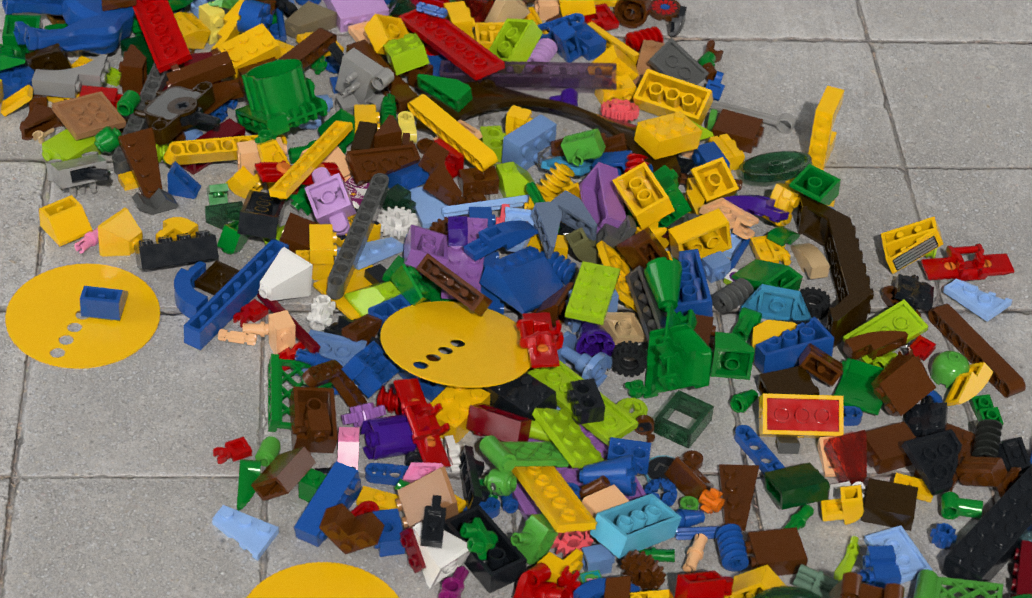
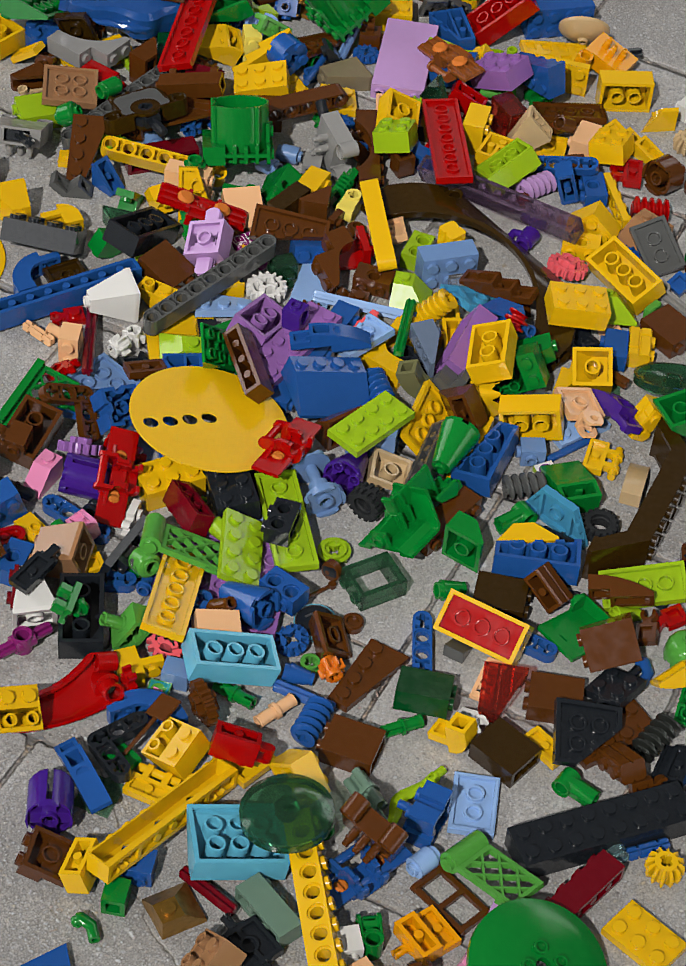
camera: 30 degrees right, 5 degrees up
(310, 159) = (215, 197): yellow plate -> none
(310, 358) = (72, 377): blue pin -> none
(321, 243) = (165, 278): yellow brick -> none
(432, 10) = (453, 104): blue axle -> none
(447, 90) = (404, 184): green slope -> none
(547, 222) = (388, 344): sand blue slope -> none
(583, 146) = (482, 284): bright green brick -> none
(636, 388) = (355, 533): green plate -> none
(782, 235) = (625, 448): green slope -> none
(943, 536) = (532, 807): blue gear -> none

